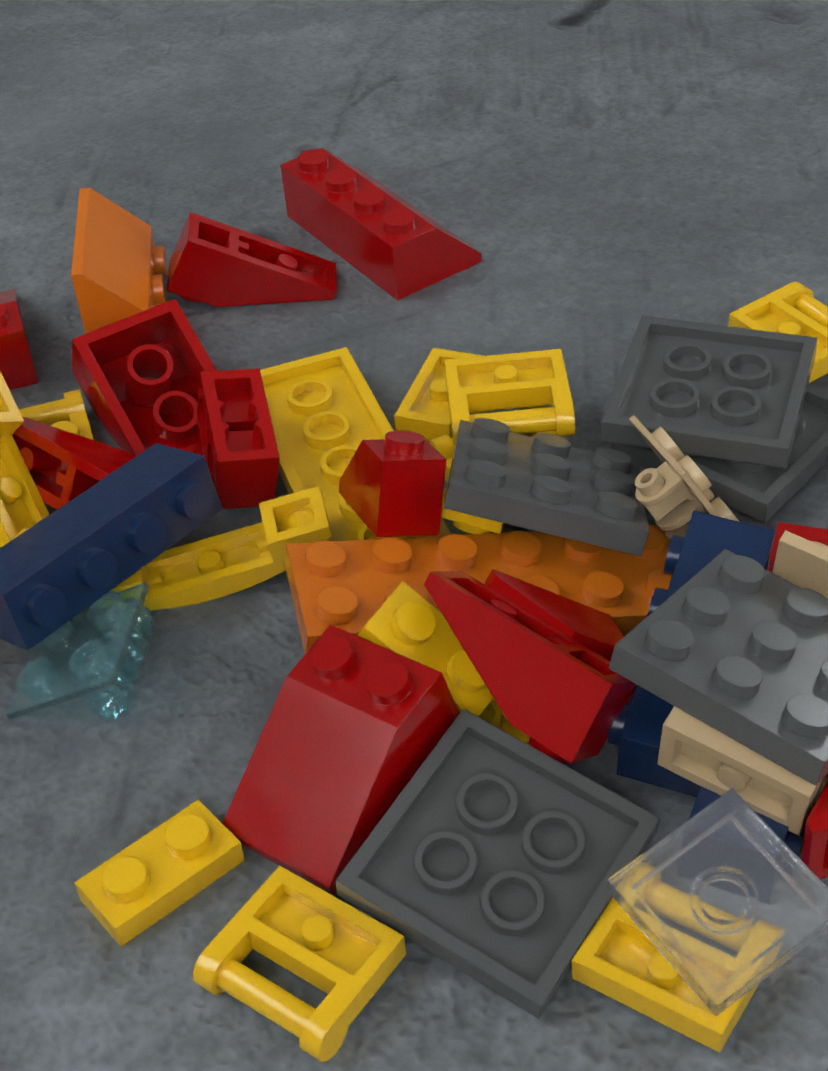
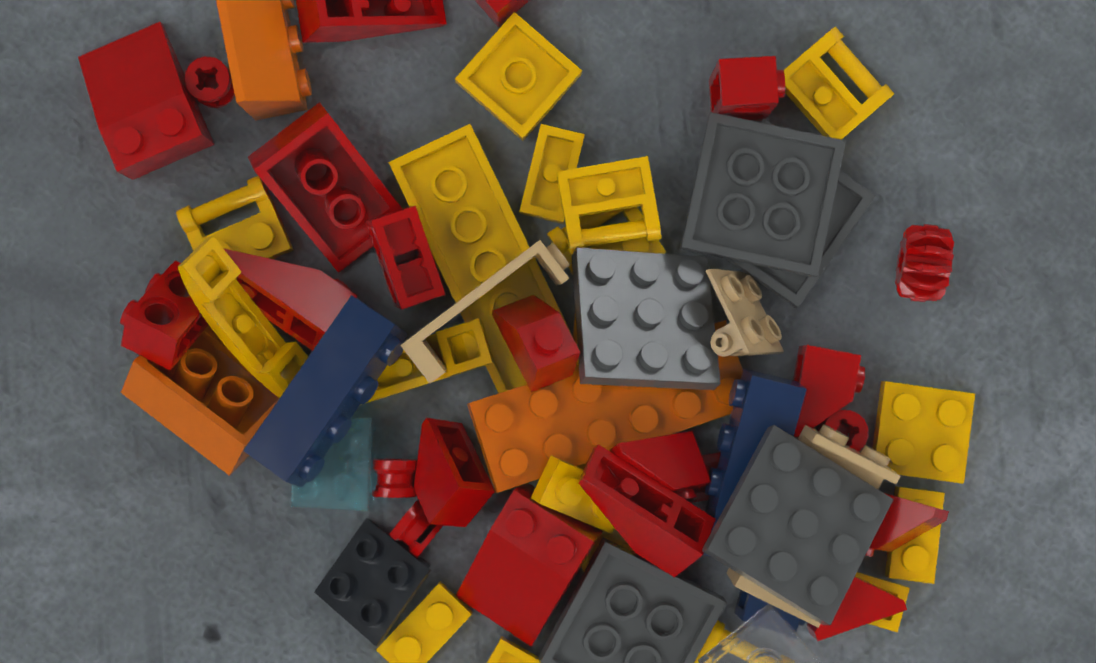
camera: 10 degrees left, 45 degrees up
(52, 322) = (217, 90): none -> red wheel
(99, 797) = (373, 581): none -> black hinge
(165, 668) = (394, 478): none -> red wheel
(181, 727) = (411, 528): none -> red wheel
(241, 659) = (449, 474): none -> red slope
(313, 440) = (419, 349): none -> tan panel
(412, 318) = (518, 76): none -> yellow plate
(683, 264) = (746, 87): none -> red brick

